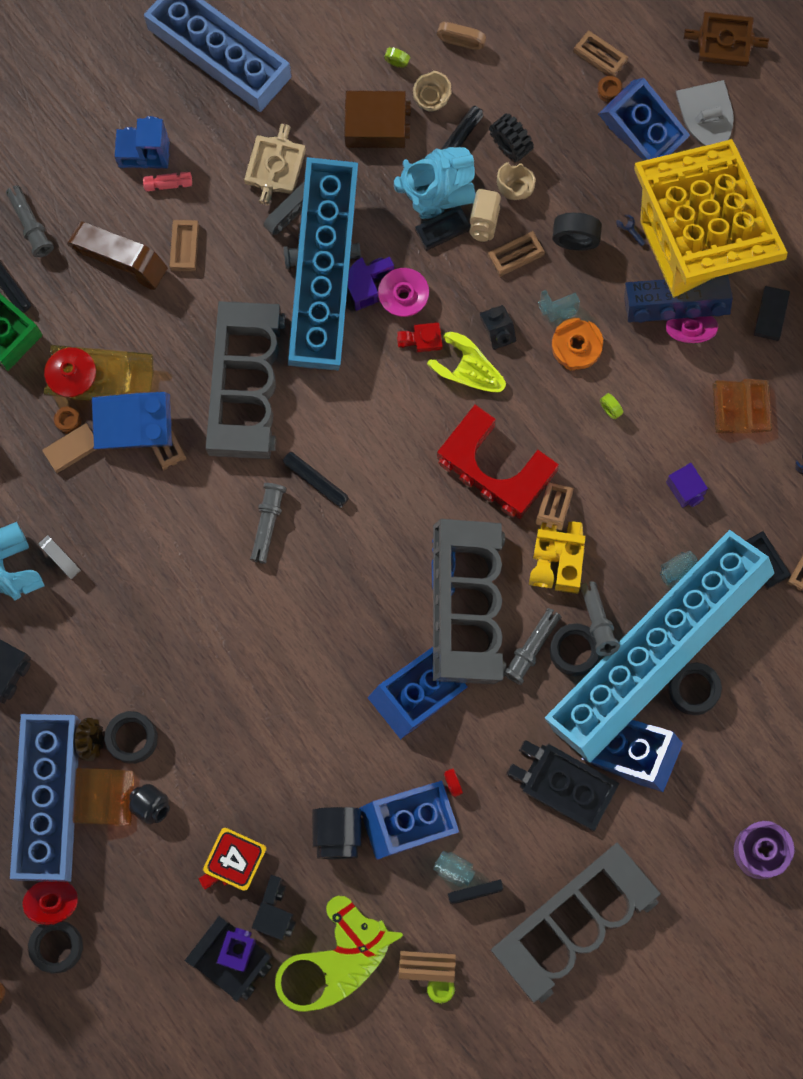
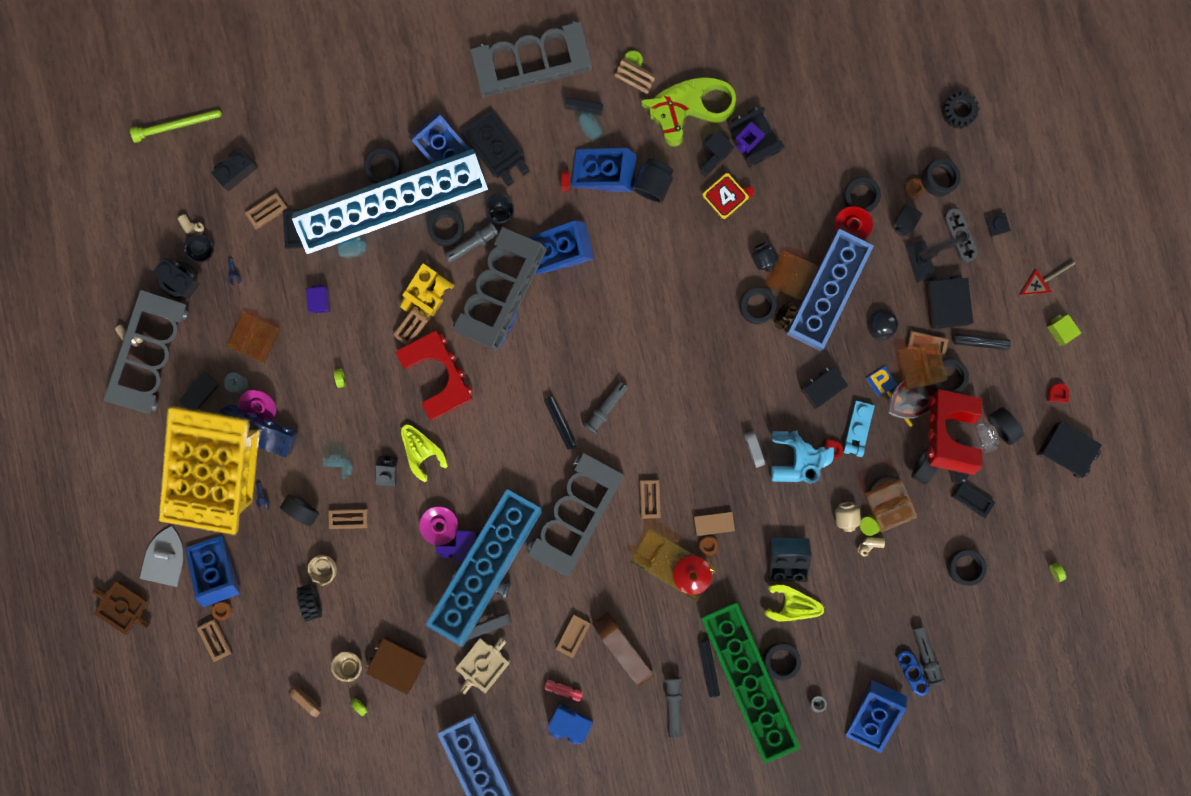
camera: 160 degrees left, 10 degrees up
(132, 420) = (665, 518): blue slope -> none
(425, 337) = (440, 487): red plate -> none
(438, 181) = (372, 592): medium azure helmet -> none
(442, 228) = (389, 562): black tile -> none
(464, 128) = (345, 625): black axle -> none
(484, 215) = (356, 552): tan brick -> none
(517, 703) = (499, 209): none -> black hair
(572, 357) = (332, 425): orange plate -> none
(601, 627) = (422, 229): dark grey pin -> none
(733, 340) = (241, 382): none -> clear light blue brick
(771, 836) = (388, 37): medium lavender brick -> none

